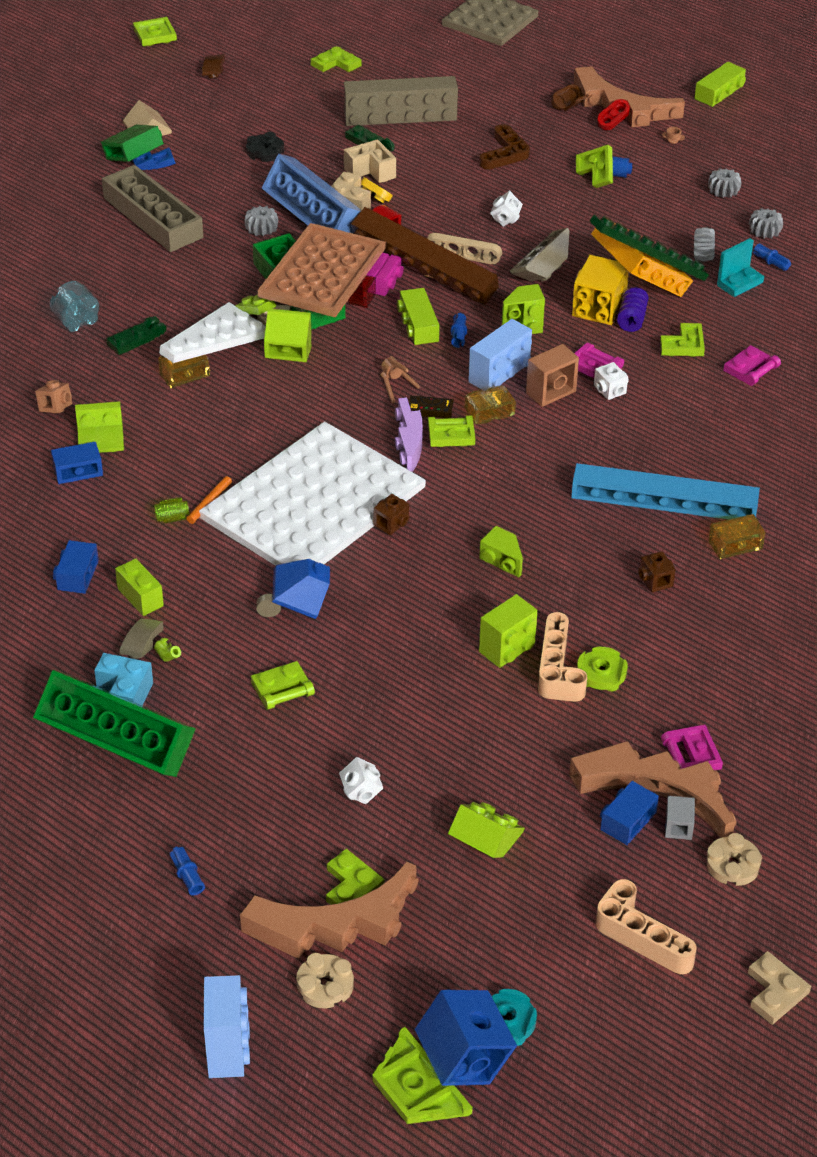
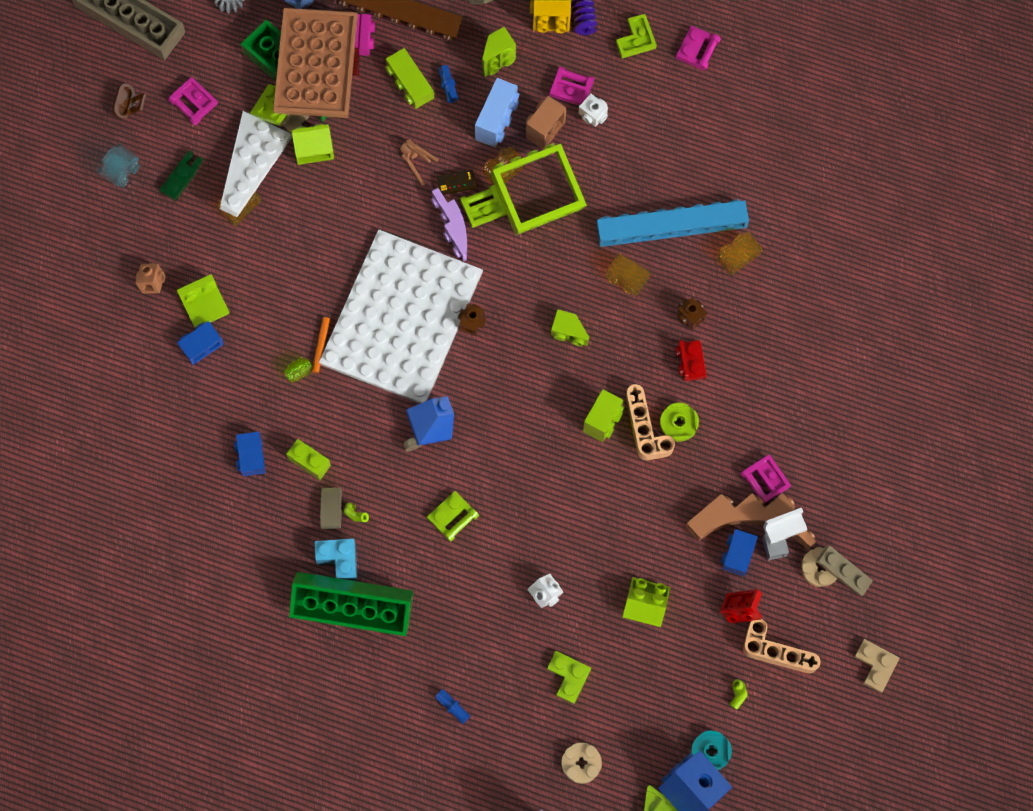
camera: 20 degrees left, 30 degrees up
(111, 268) = (126, 100): none -> reddish brown bracket
(186, 279) = (197, 96): none -> dark pink plate
(335, 925) = (595, 702): nougat arch -> none
(518, 451) = (517, 226): none -> lime window
(572, 966) = (740, 693): none -> lime arm
(594, 522) = (627, 275): none -> clear yellow brick
(609, 864) = (741, 606): none -> red bracket
(640, 617) = (691, 359): none -> red bracket
(698, 786) = (785, 526): none -> white panel
(763, 866) = (844, 570): none -> dark tan plate

